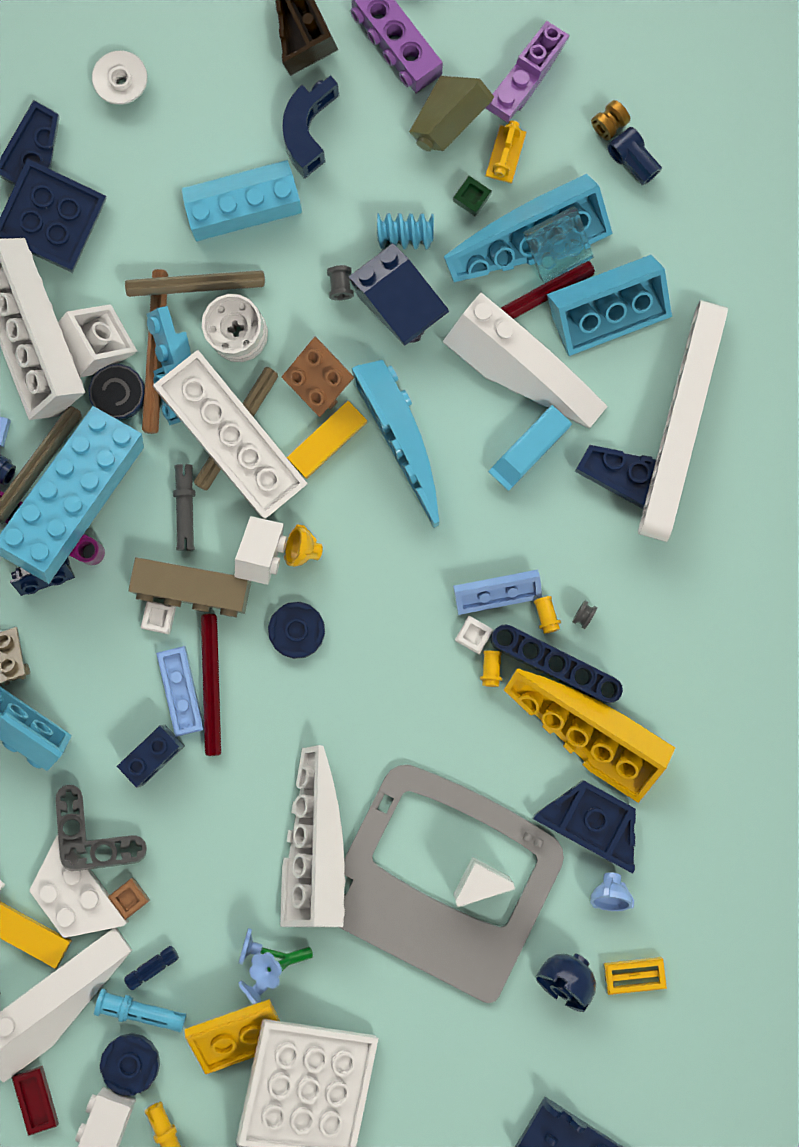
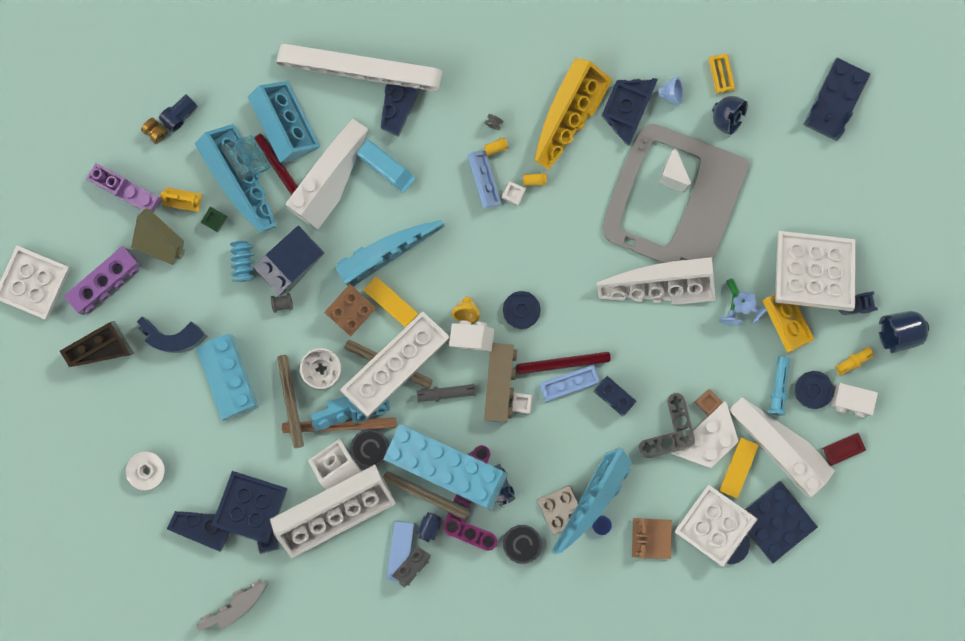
camera: 95 degrees left, 0 degrees up
(151, 968) = (751, 382): dark blue axle -> none
(570, 664) = (528, 129): dark blue beam -> none

